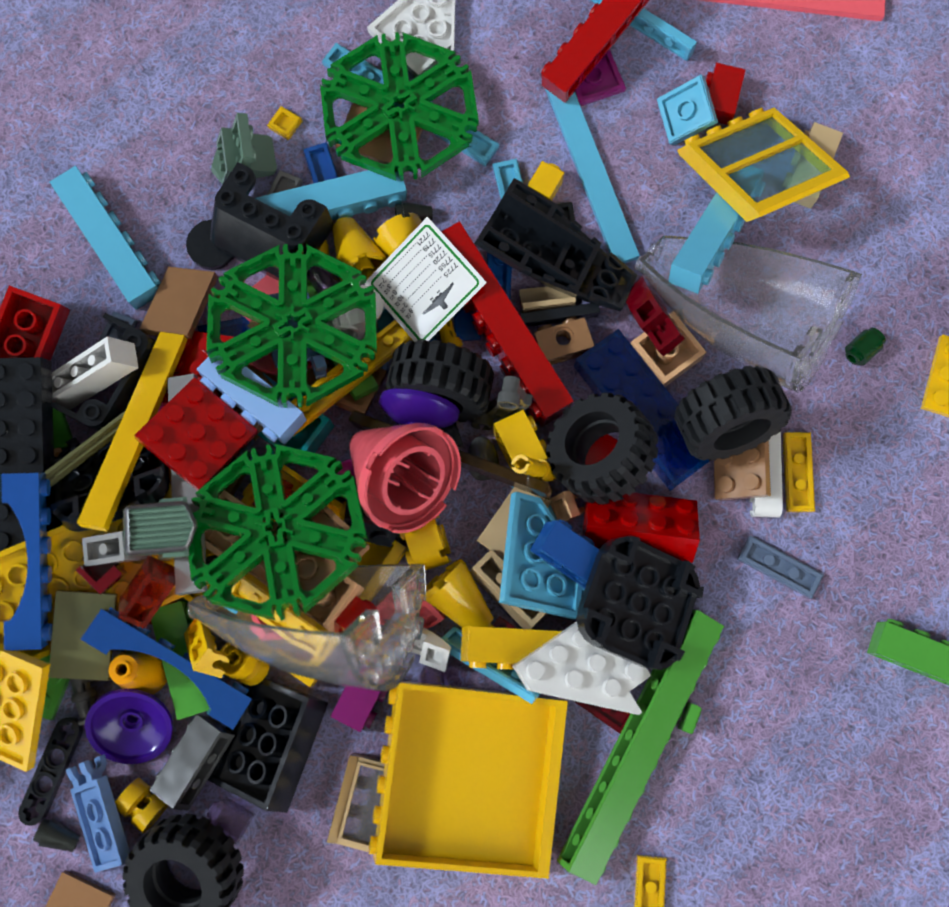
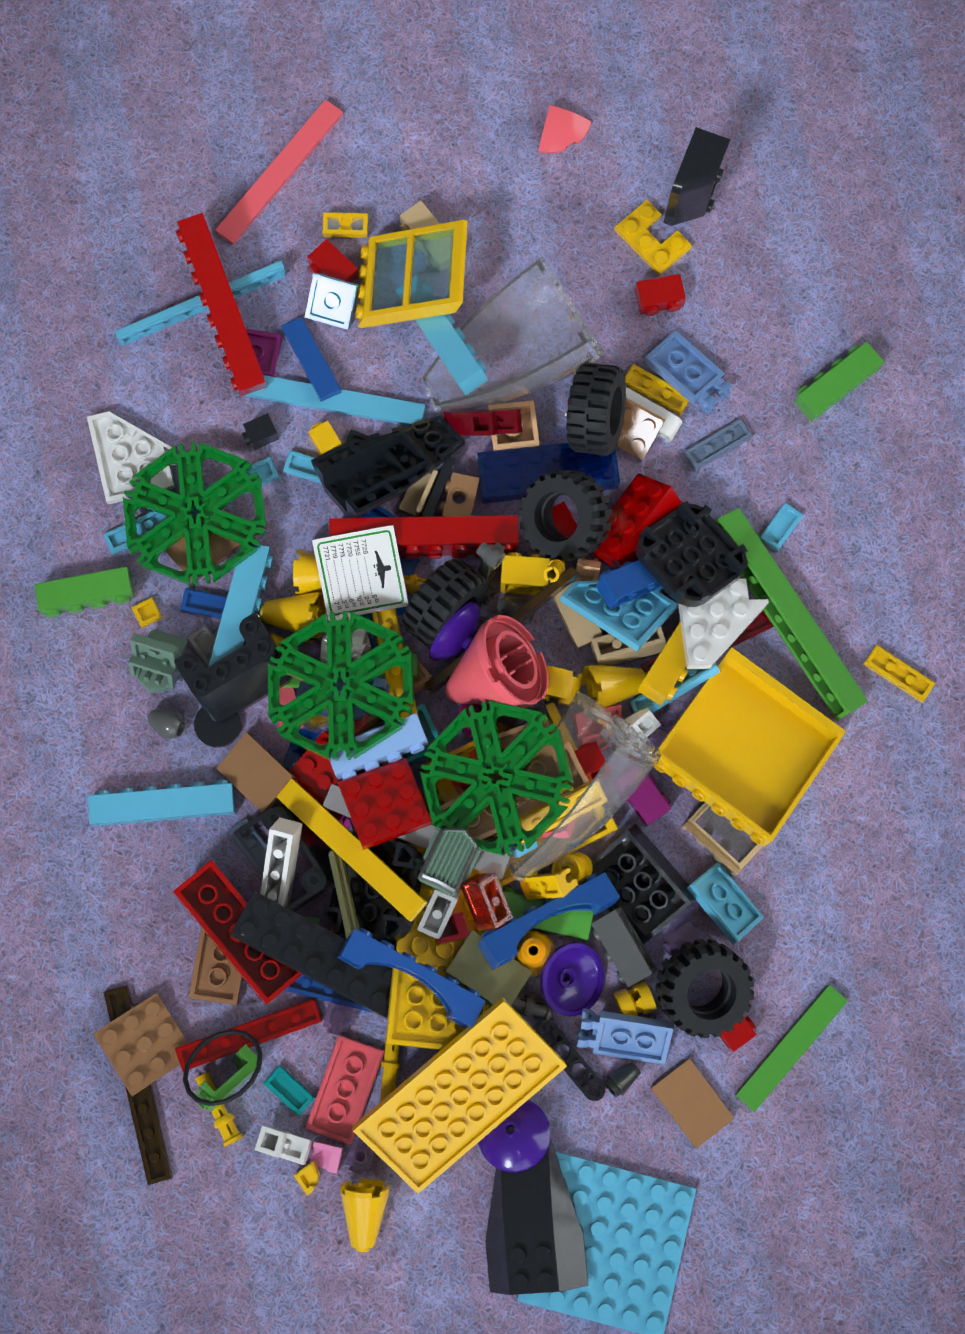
camera: 65 degrees left, 0 degrees up
(186, 197) = (167, 722): none -> dark grey animal
(273, 58) = (84, 591): none -> bright green brick
(292, 846) = (725, 903): none -> medium azure tile
(421, 210) = (286, 555): pearl dark grey cone -> none
(517, 121) = (260, 432): none -> black brick
(617, 126) = (311, 359): none -> blue tile
(690, 718) = (789, 570): bright green tile -> none
(732, 682) = (781, 527): none -> medium azure tile
(772, 82) = (345, 225): none -> yellow piece
(838, 493) = (688, 371): none -> medium blue tile
(865, 346) = (592, 286): dark green brick -> none
(901, 419) = (660, 294): none -> red brick

